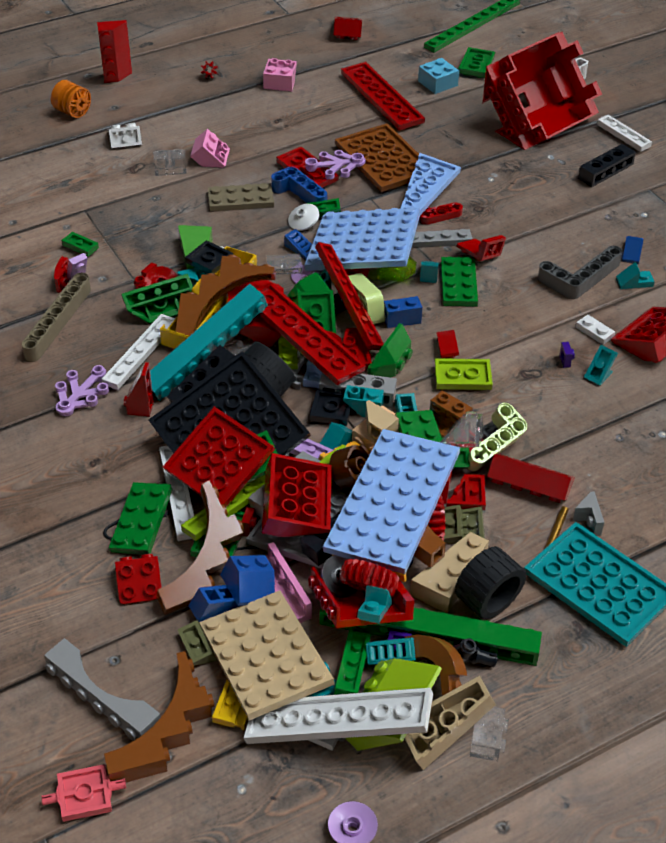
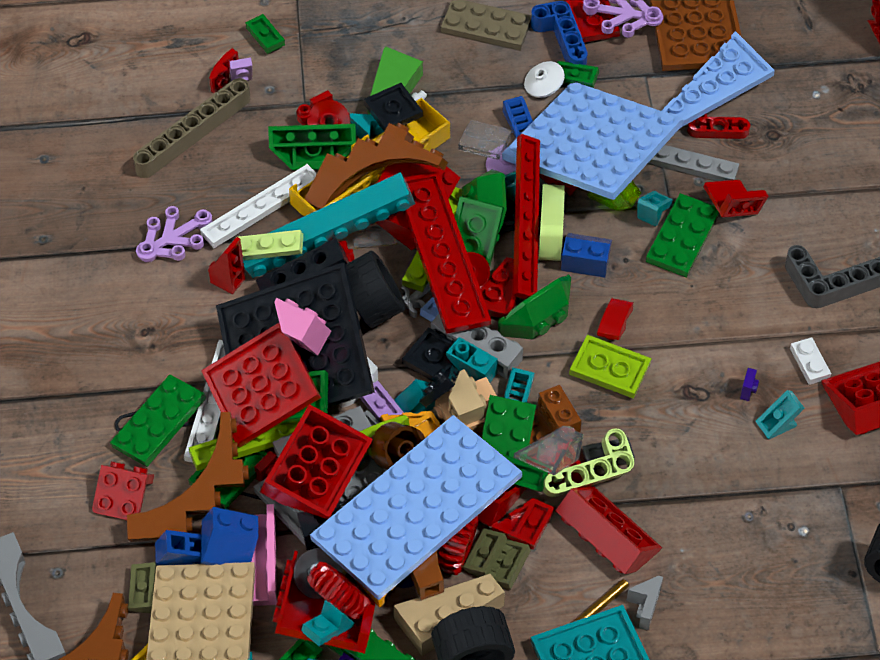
camera: 25 degrees right, 10 degrees up
(171, 366) = (272, 244): none -> yellowish green plate
(234, 401) = (302, 325): none -> bright pink slope
(354, 418) = (442, 383): none -> black wing

